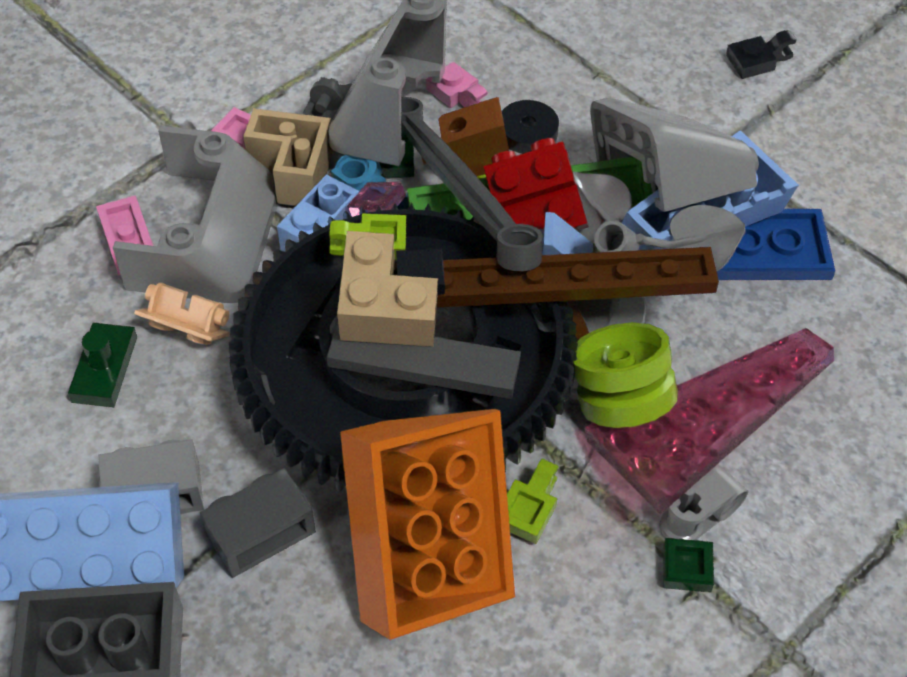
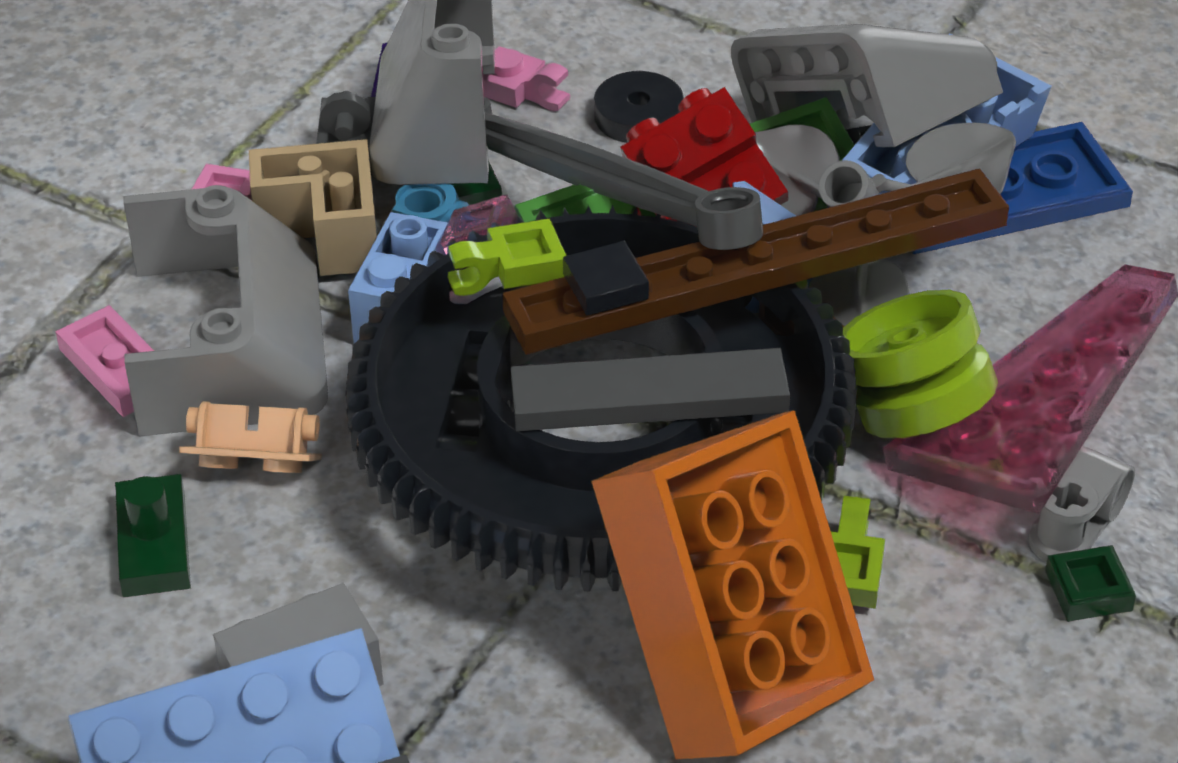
camera: 15 degrees left, 10 degrees down
(258, 521) = (477, 671): dark grey piece -> none
(377, 303) = (574, 322): tan brick -> none
(475, 133) = (583, 108): dark orange torso -> none

